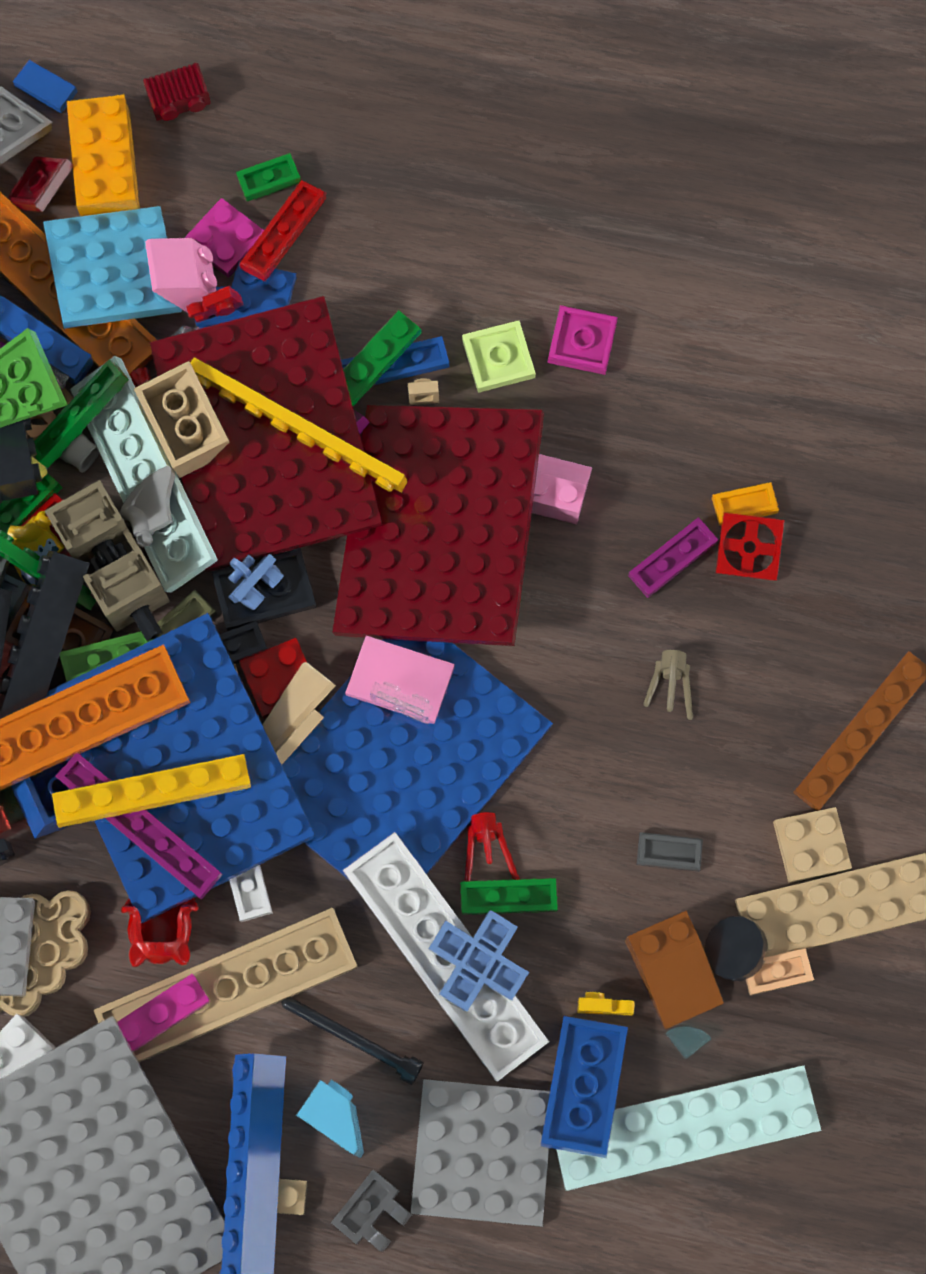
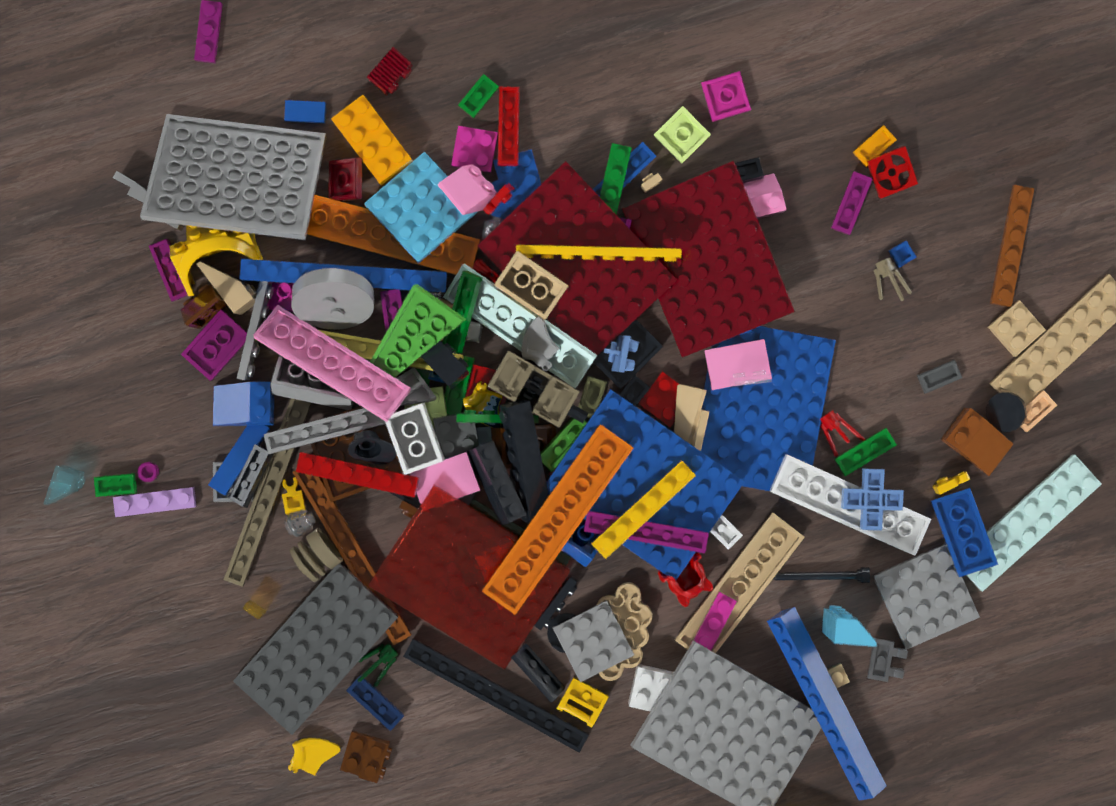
camera: 30 degrees left, 15 degrees up
(559, 444) = (750, 170): none -> black plate
(687, 1039) = (1004, 474): clear light blue tile -> none
(706, 661) = (902, 254): none -> blue tile

